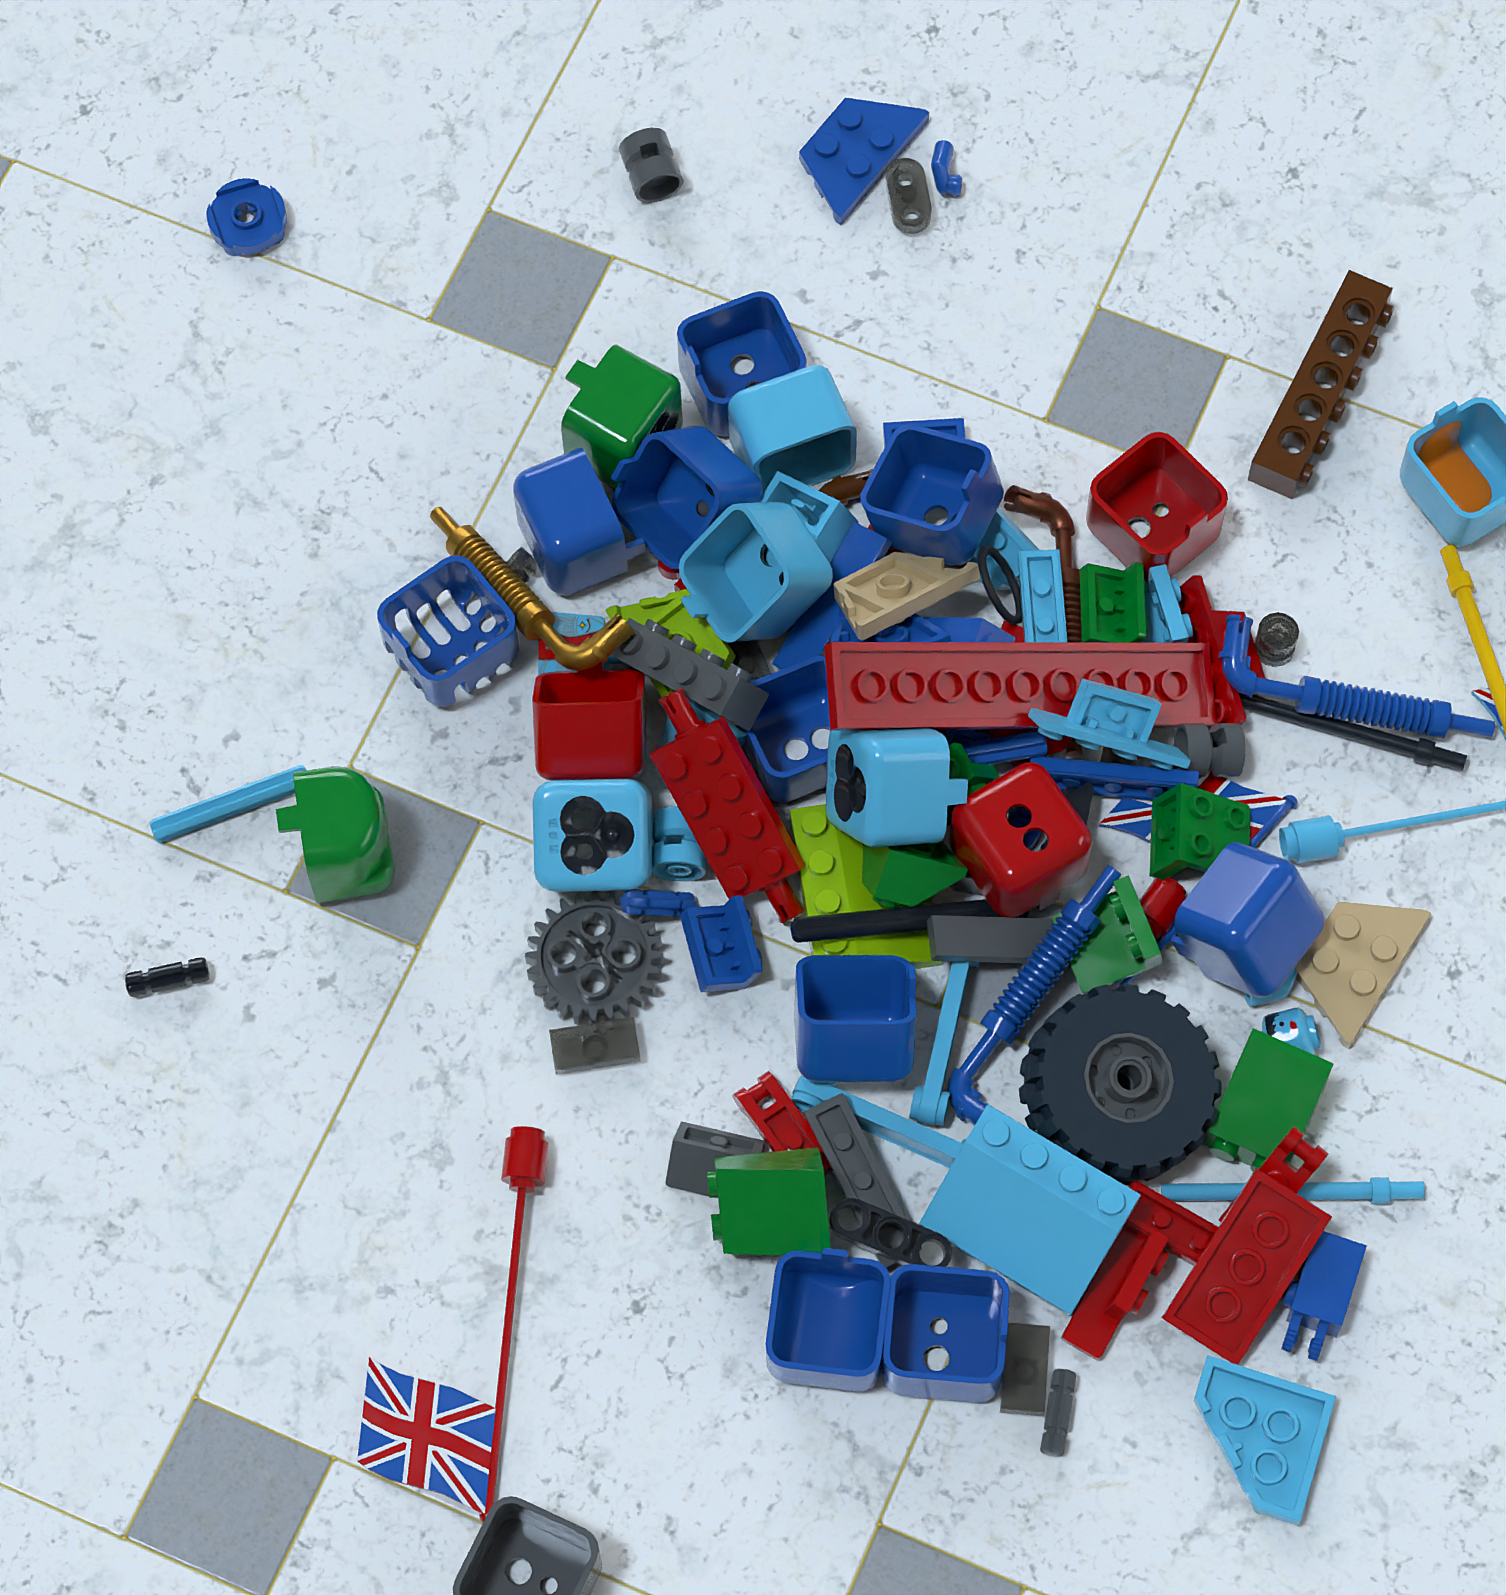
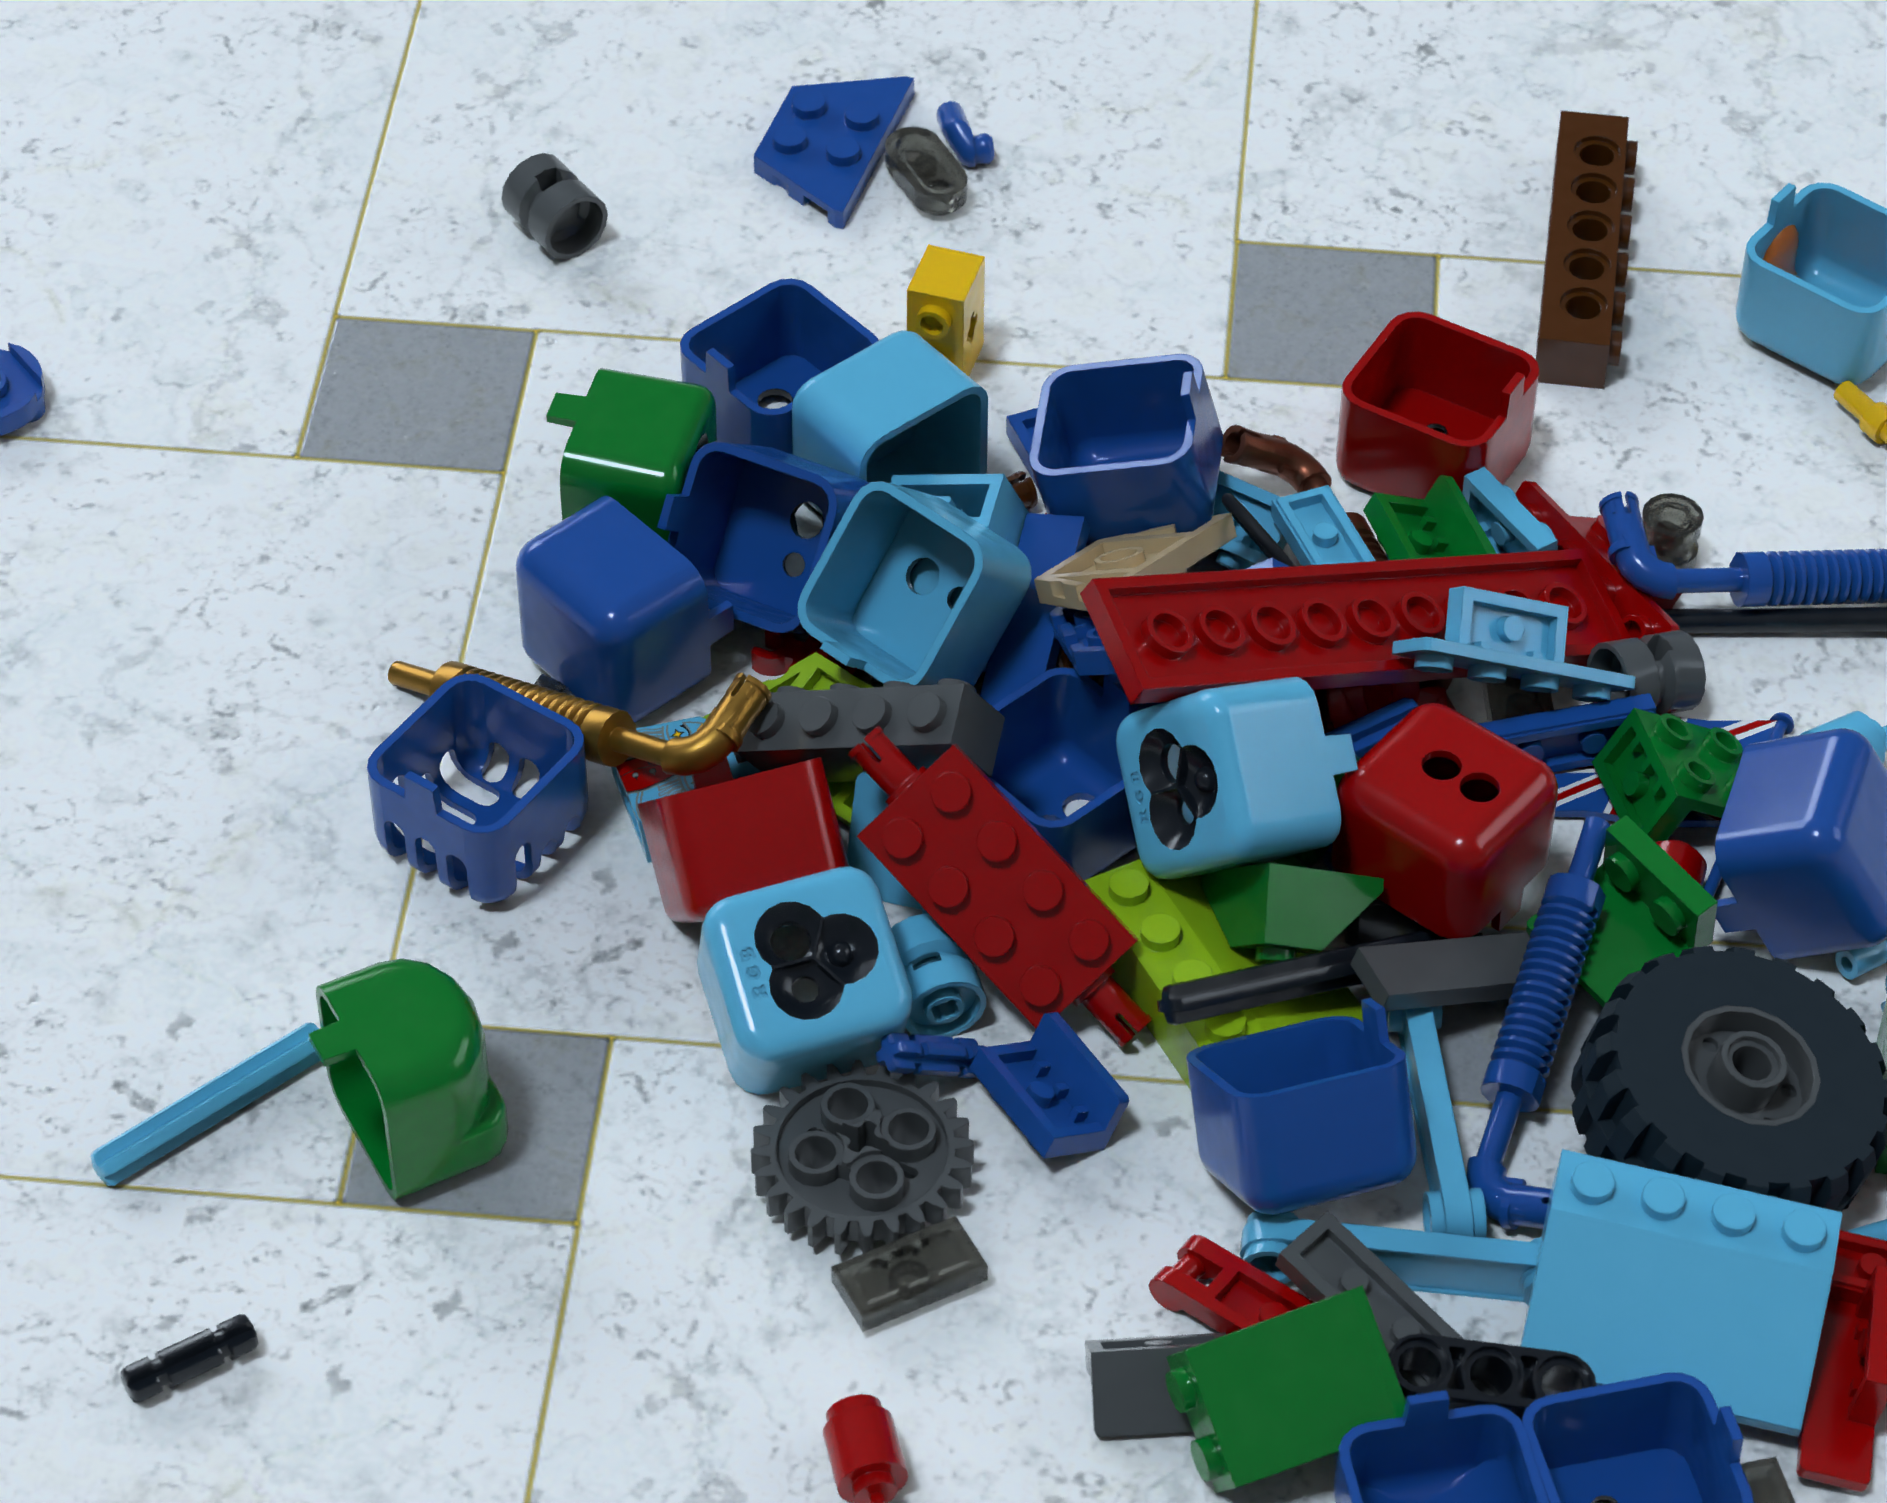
camera: 20 degrees left, 20 degrees down
(868, 336) = (948, 304): none -> yellow brick

